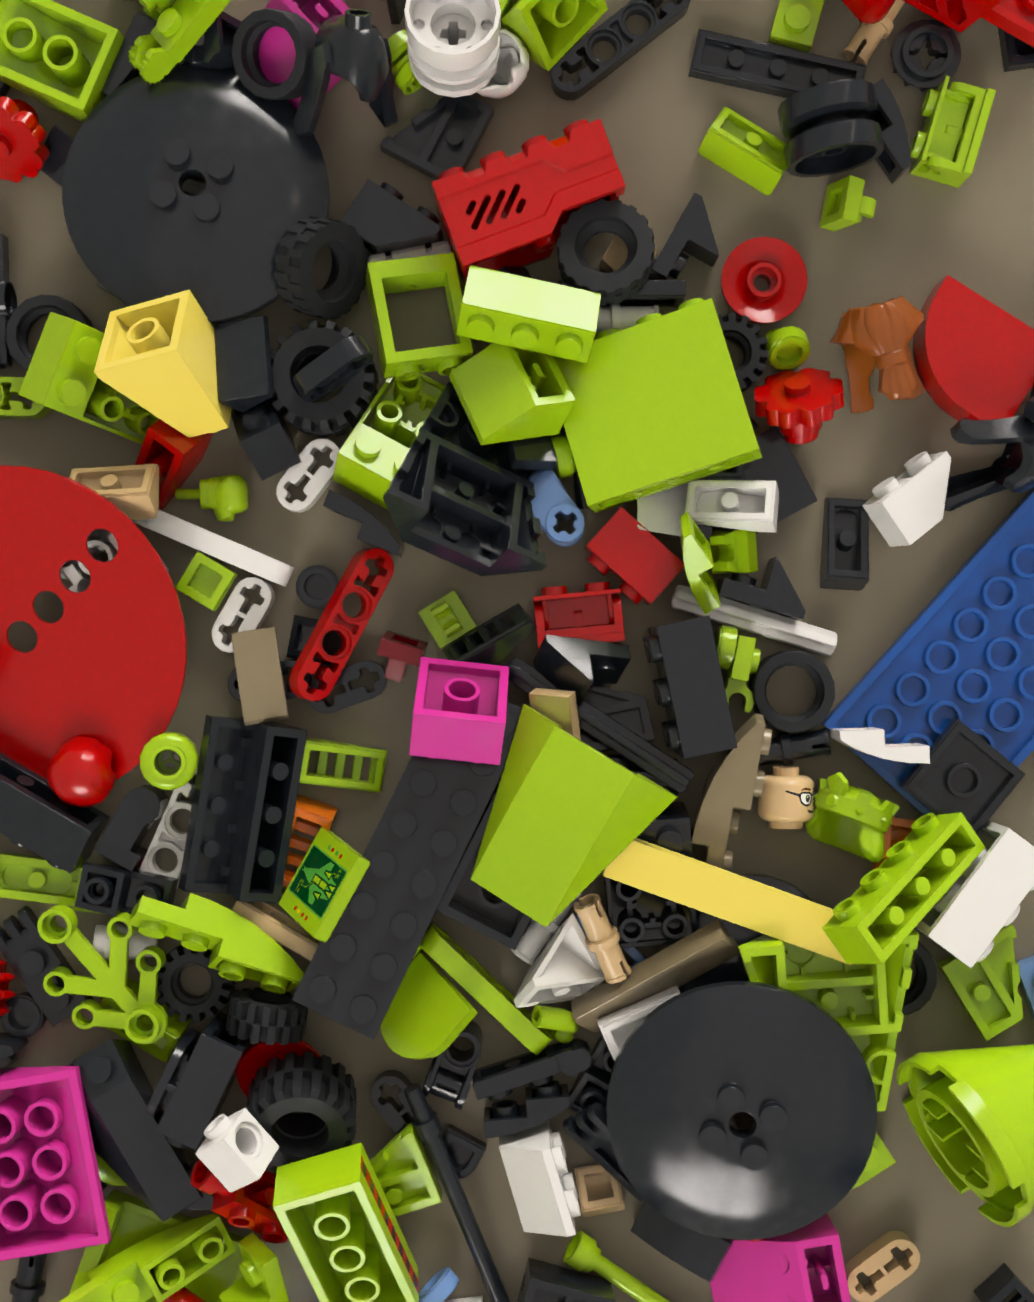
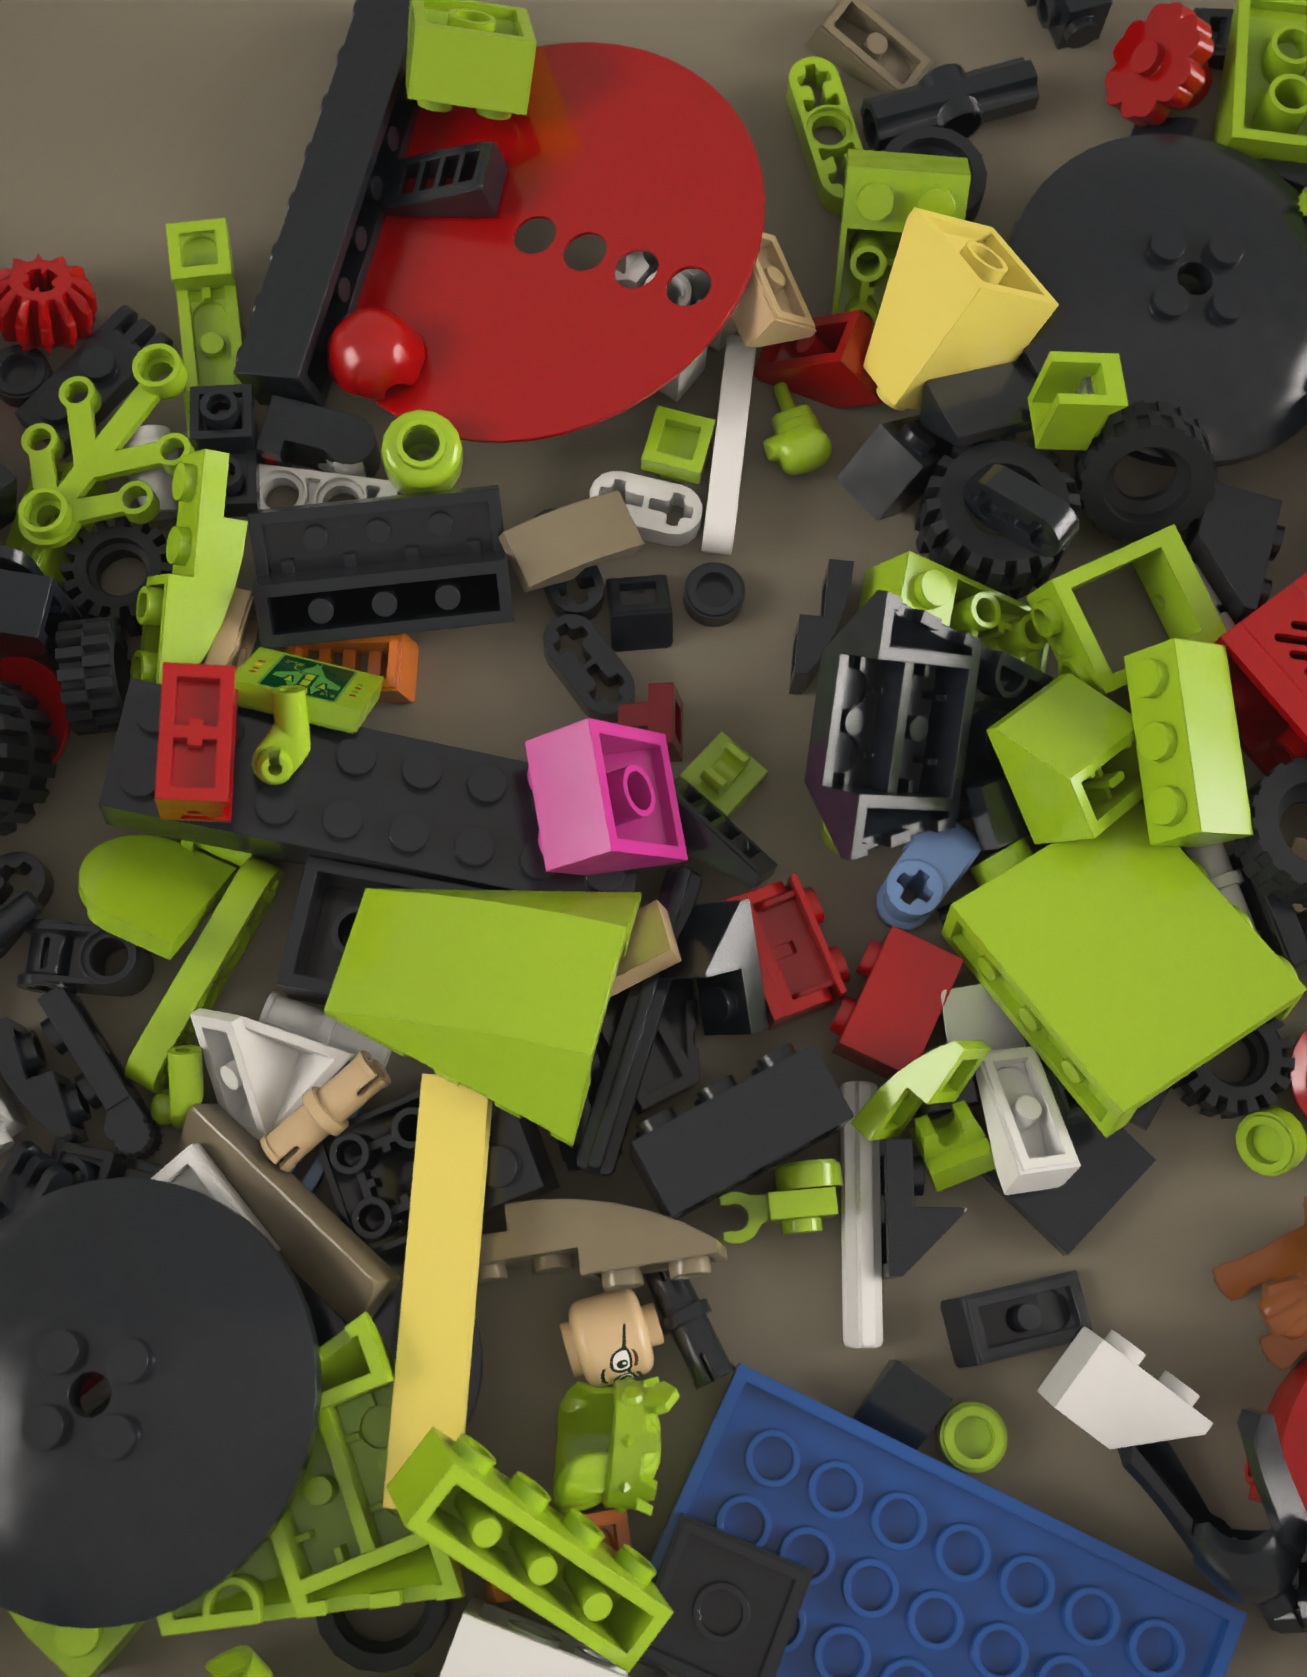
camera: 70 degrees right, 15 degrees down
(265, 303) = (1075, 398): none -> lime window
(296, 474) = (860, 537): white beam -> none
(323, 746) = (466, 637): lime slope -> none
(347, 627) = (672, 639): red beam -> none
(358, 971) = (196, 742): none -> red hinge
(366, 909) = (287, 740): none -> lime arm
(799, 402) = (1199, 1178): red plant -> none
(824, 690) = (823, 1283): black tyre -> none
(872, 742) = (736, 1434): white slope -> none
(875, 631) = (903, 1405): none -> black slope
(904, 595) = (972, 1437): none -> lime tile

